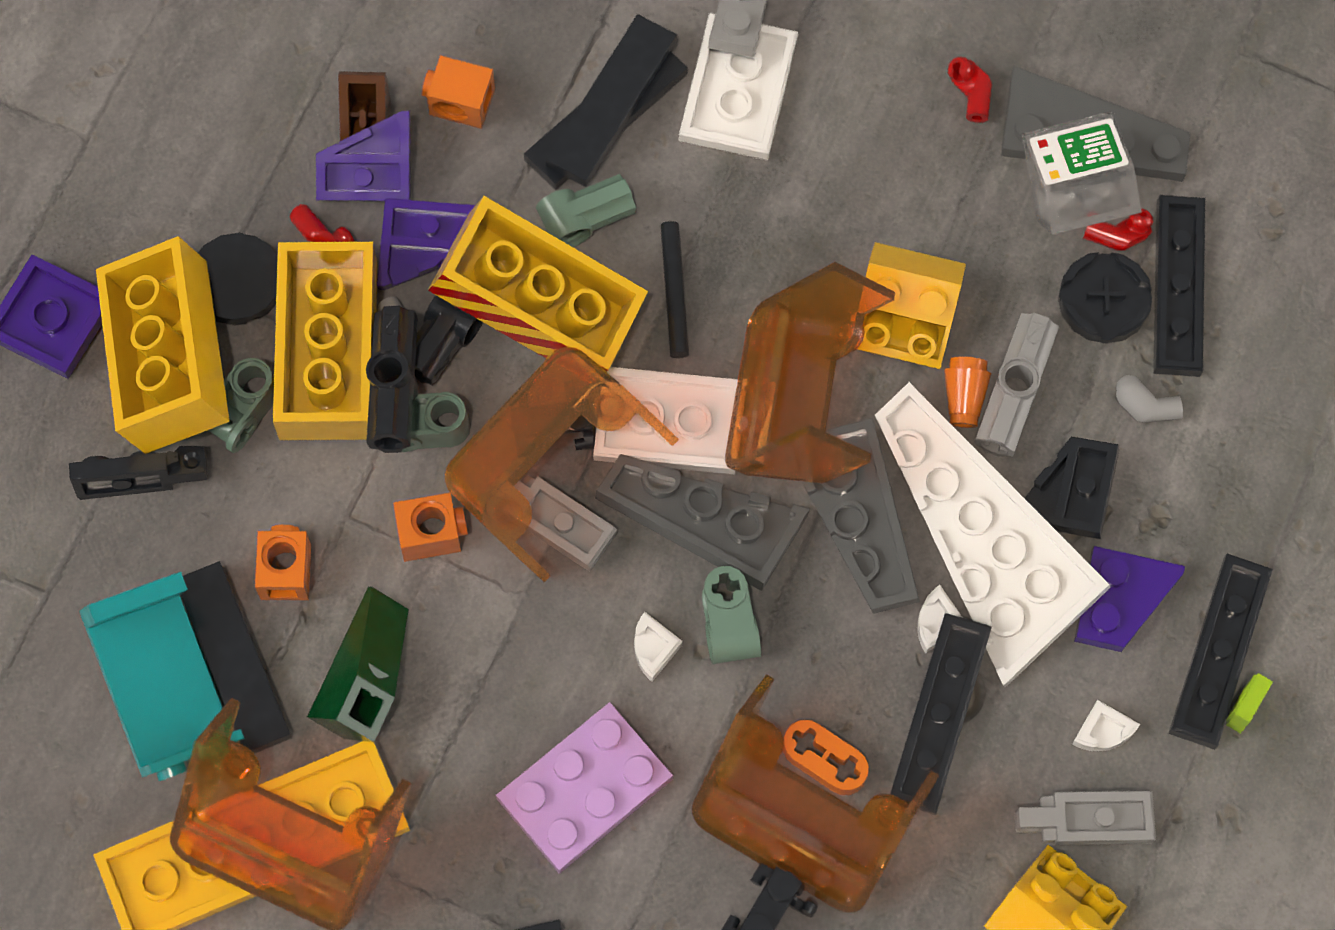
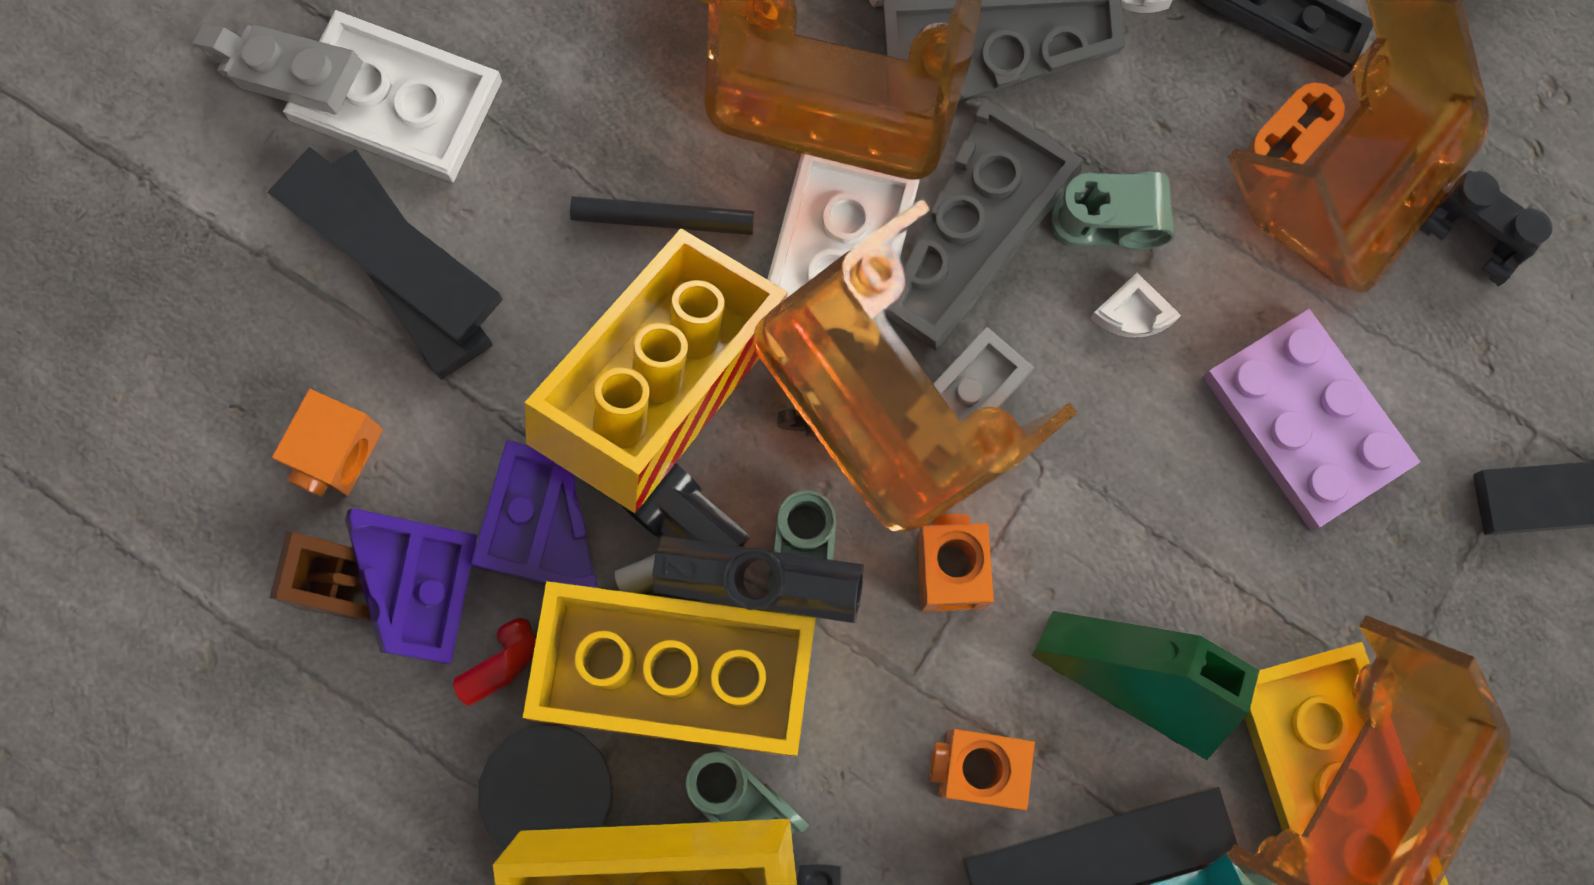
camera: 85 degrees left, 5 degrees up
(577, 214) = (539, 318): sand green piece -> none

